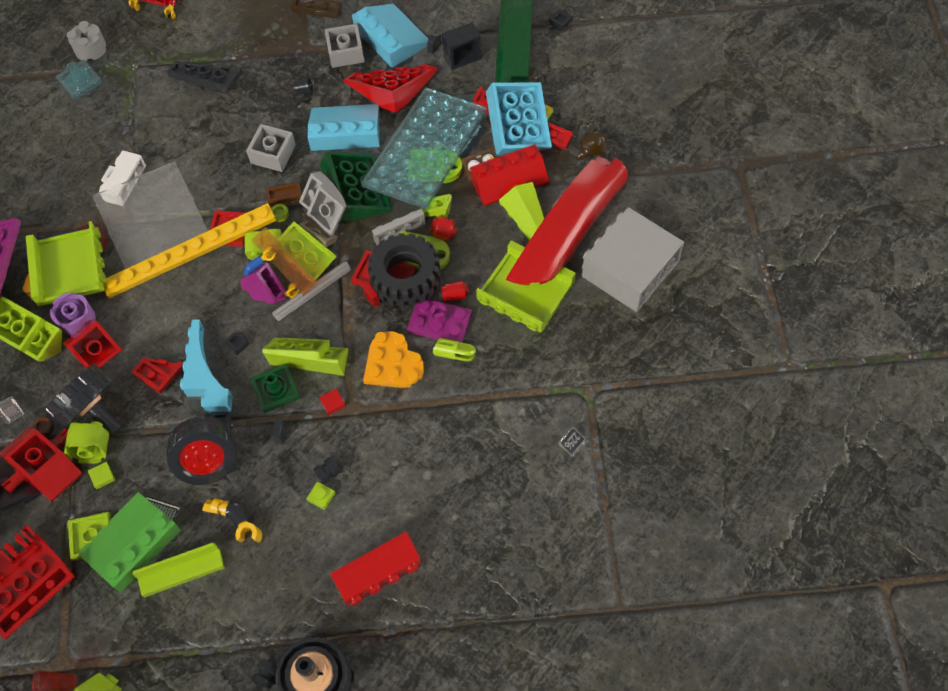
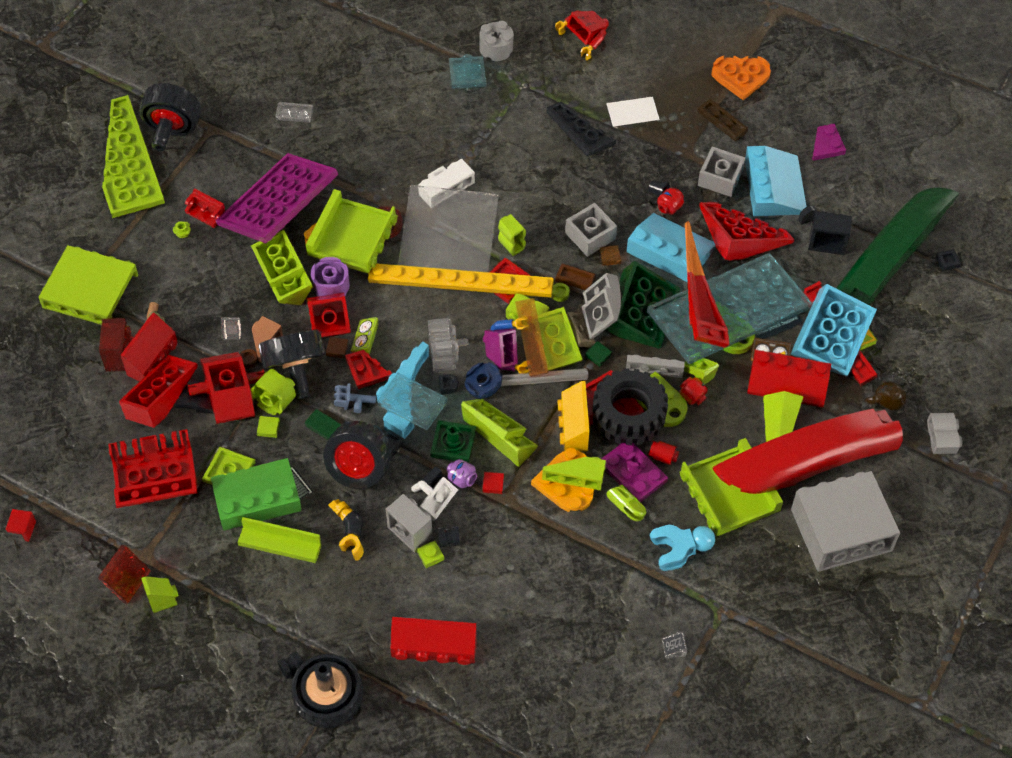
camera: 30 degrees right, 5 degrees down
(42, 394) = (265, 330): none -> nougat slope
(118, 369) = (337, 347): none -> reddish brown tile
(136, 344) = (365, 335): none -> slope
(150, 443) = (321, 424): none -> dark green tile
(153, 407) = (343, 397): none -> sand blue arm
(208, 188) = (511, 234): none -> lime brick
(211, 312) = (443, 344): none -> clear brick
(217, 375) = (412, 401): none -> clear light blue plate
(239, 39) = (632, 111): none -> white sticker
(274, 325) = (490, 386): none -> dark blue tile
(286, 480) = (409, 522): none -> light grey brick
(294, 444) = (437, 497): none -> white plate
(300, 160) = (610, 255): none -> clear orange tile
(301, 410) = (461, 473): none -> medium lavender head
(319, 90) = (670, 201): none -> red head
(345, 244) = (598, 354): none -> dark green tile
(364, 306) = (574, 417): none -> yellow slope
(402, 347) = (580, 472): none -> lime slope
(412, 161) = (703, 312): none -> red plate
(521, 355) = (683, 544): none -> medium azure piece
(652, 149) = (944, 433): none -> light grey brick

